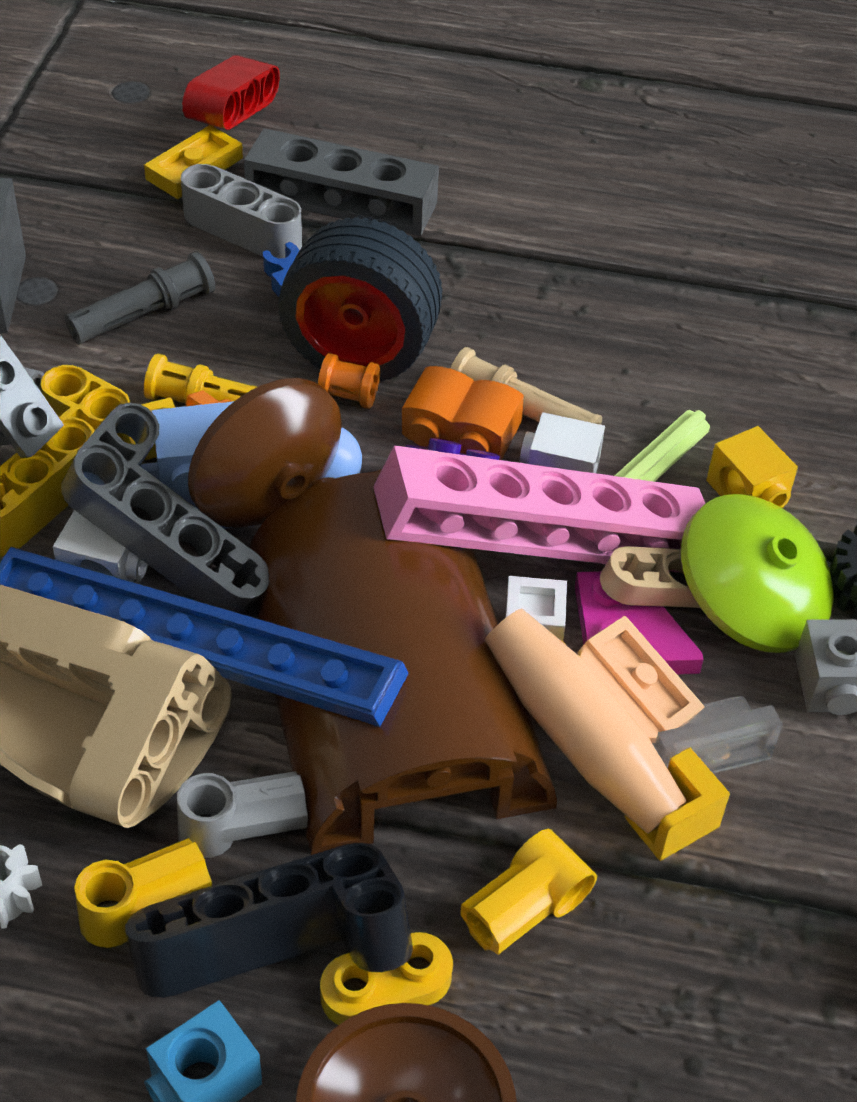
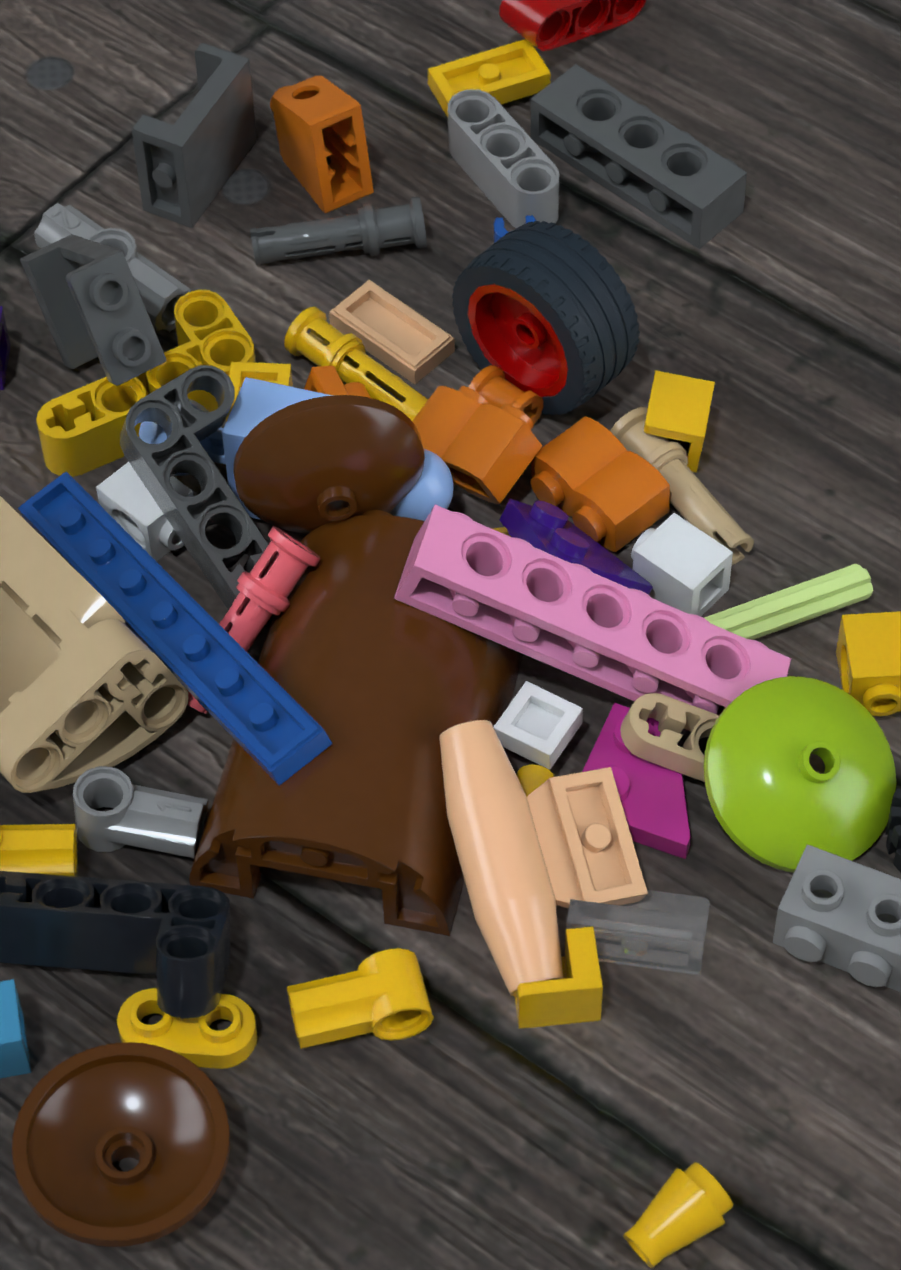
camera: 30 degrees right, 5 degrees up
(91, 232) = (318, 122): none -> orange torso
(225, 355) = (393, 331): none -> light nougat tile
(259, 575) = (264, 590): none -> coral pin
(369, 406) = (478, 441): none -> orange brick
(494, 340) = (680, 411): none -> yellow panel

